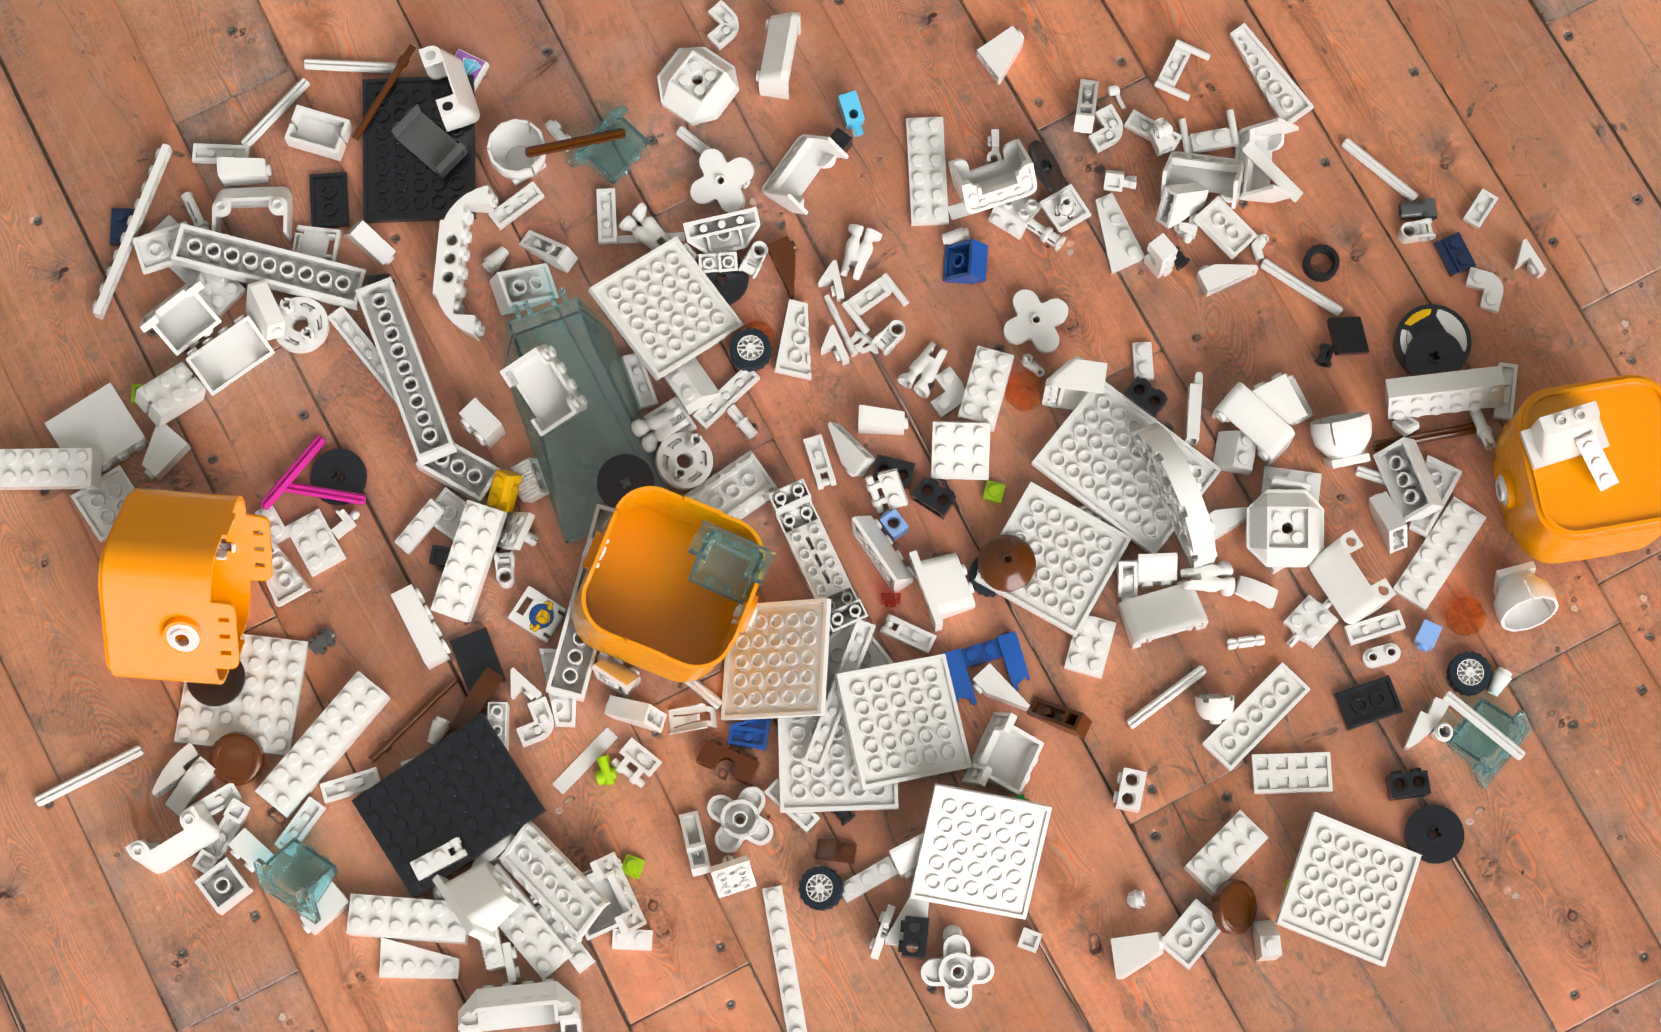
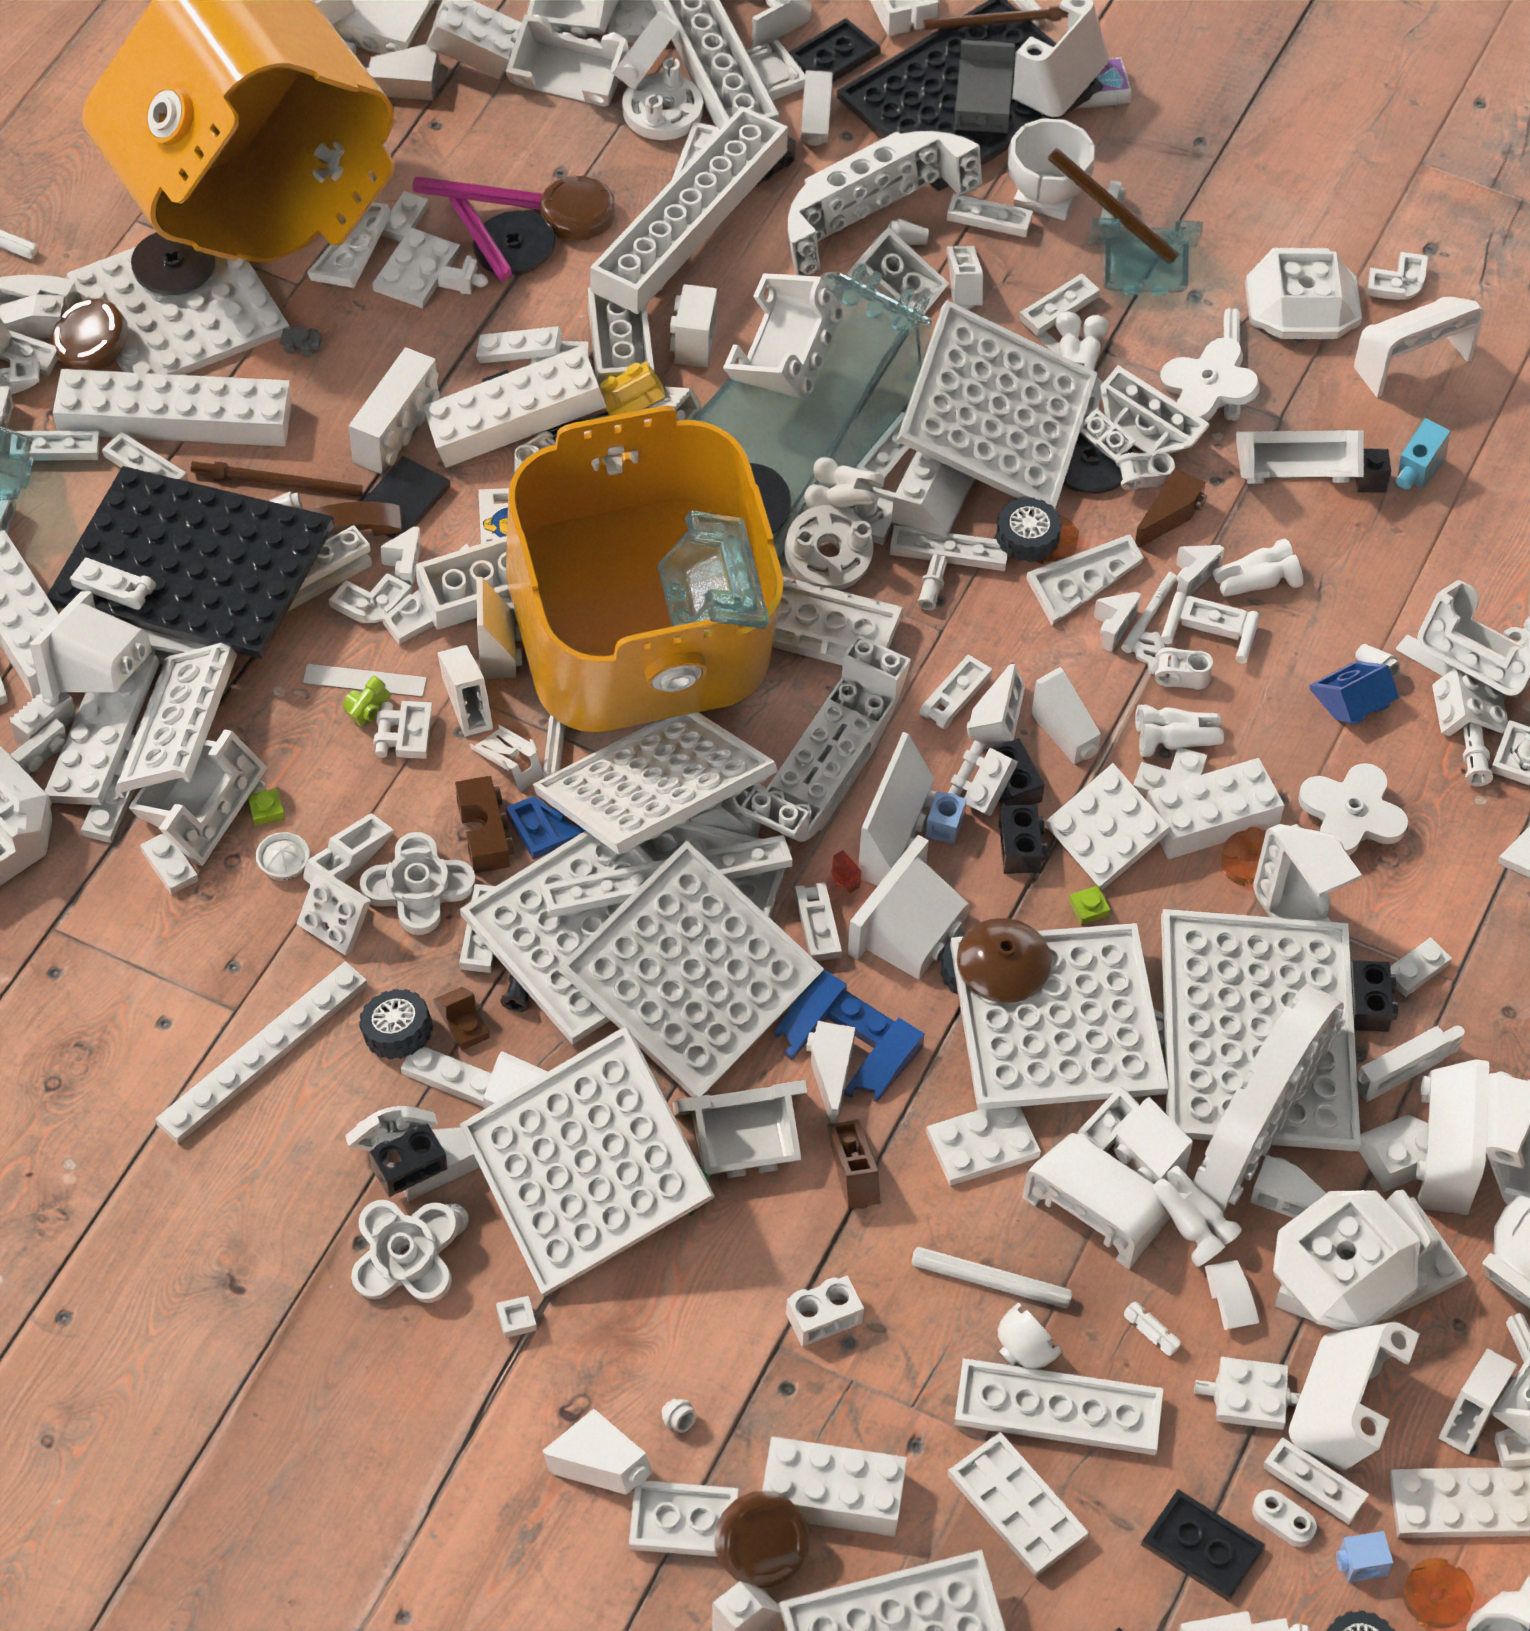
camera: 50 degrees right, 20 degrees down
(341, 424) = (578, 207): none -> reddish brown piece
(673, 878) = (282, 856): none -> white hat
(927, 171) = (1405, 598): white plate -> none

